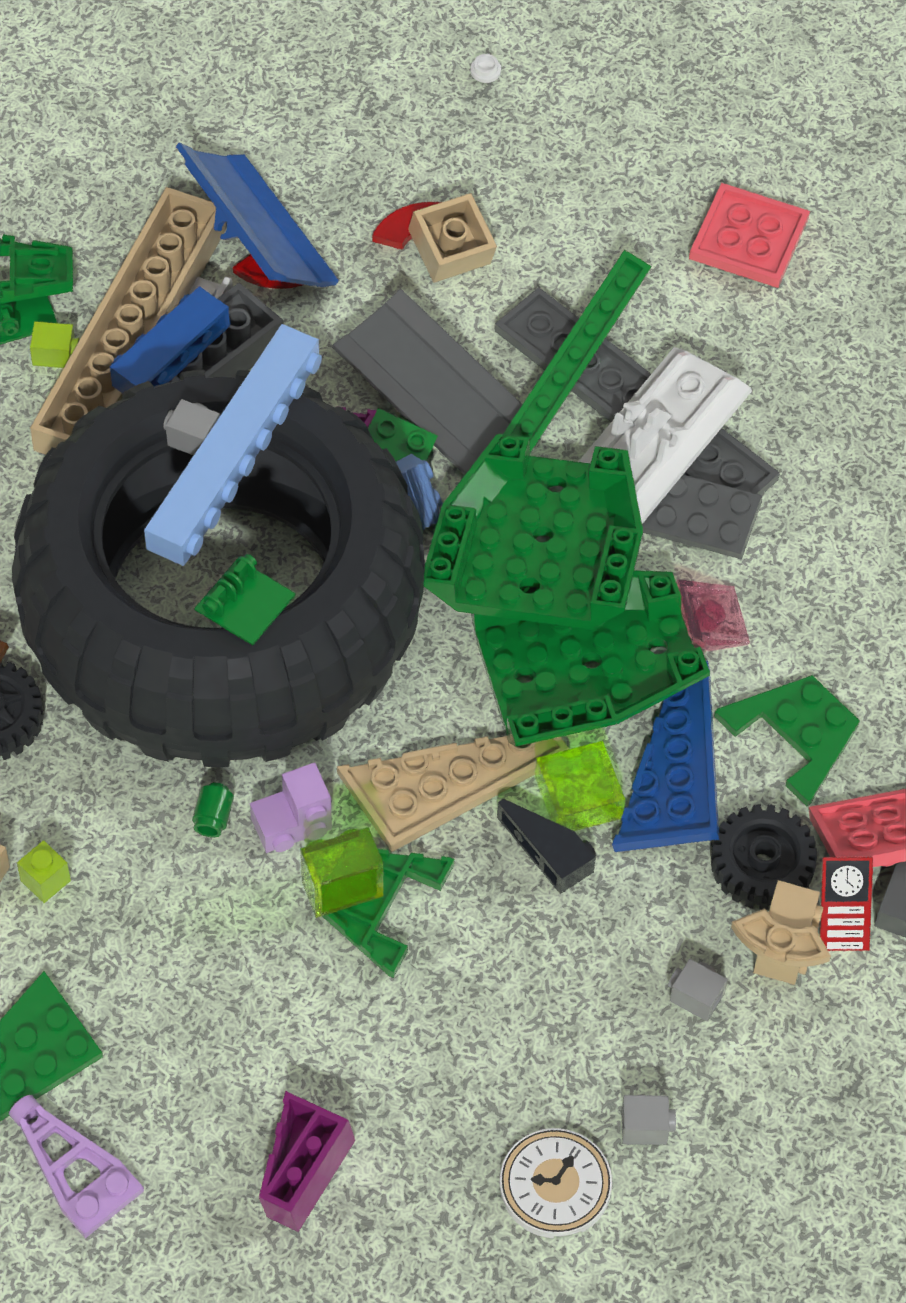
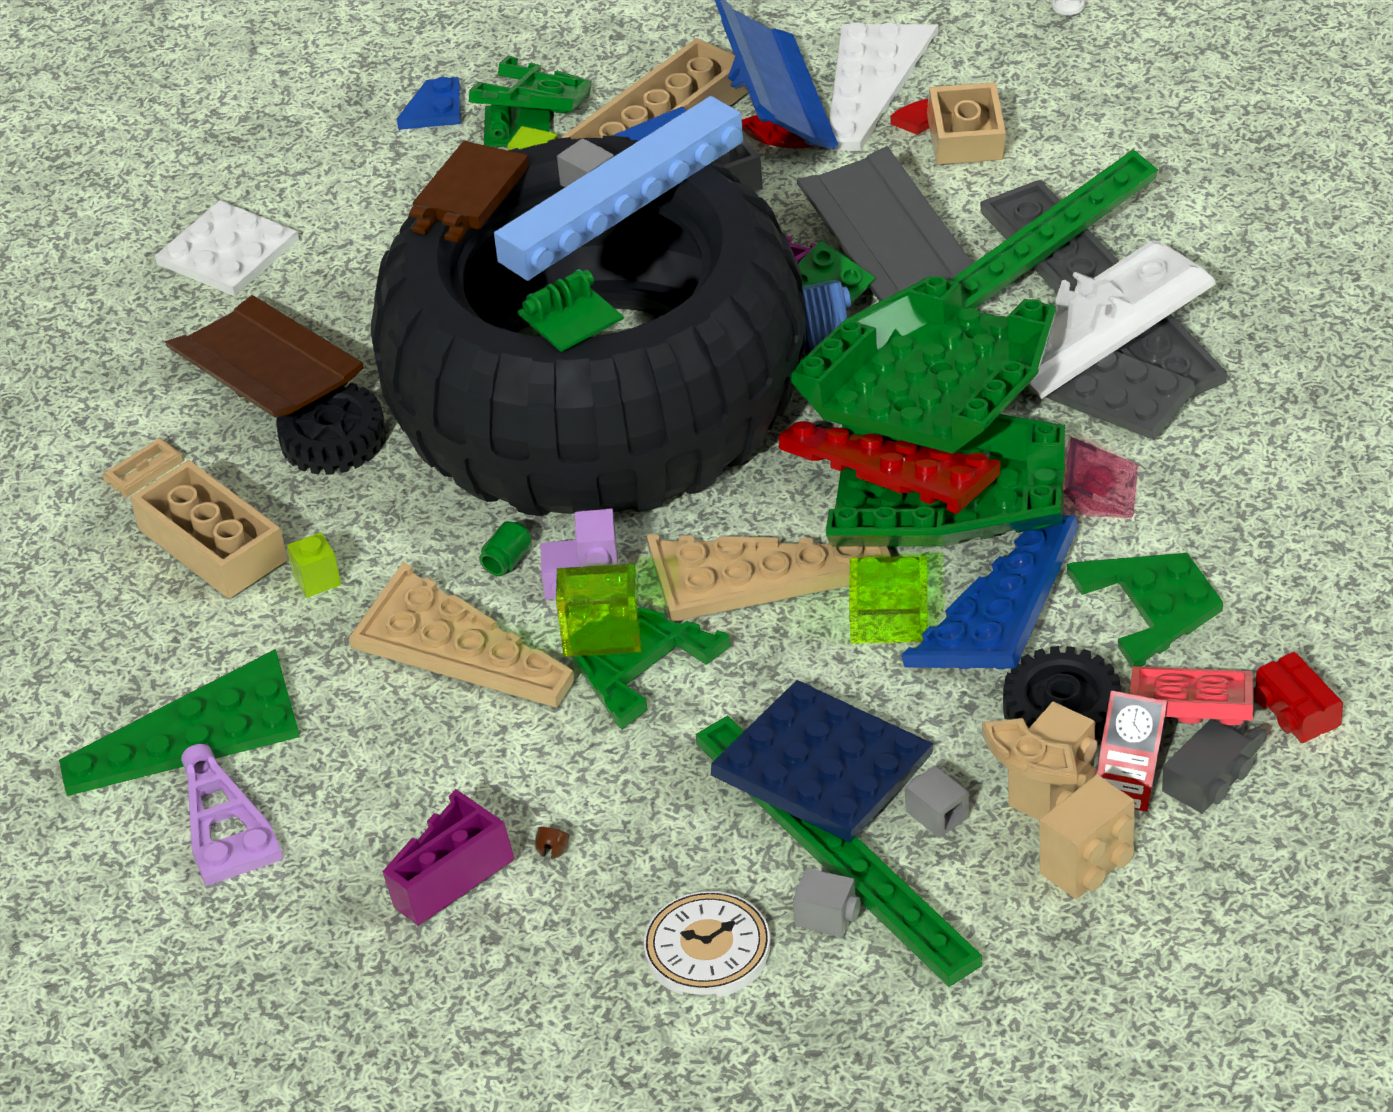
camera: 25 degrees right, 15 degrees down
(84, 470) = (467, 189): none -> reddish brown tile
(197, 919) = (450, 637): none -> tan wing
(333, 184) = (870, 72): none -> white wing
(380, 1112) = (551, 839): none -> reddish brown hinge
(538, 649) = (897, 464): none -> red wing
(550, 846) = (836, 644): black slope -> none
(586, 973) = (822, 760): none -> dark blue plate
(629, 1058) = (875, 883): none -> green plate
(749, 235) = (1284, 173): coral plate -> none
(844, 1001) = (1087, 837): none -> tan brick

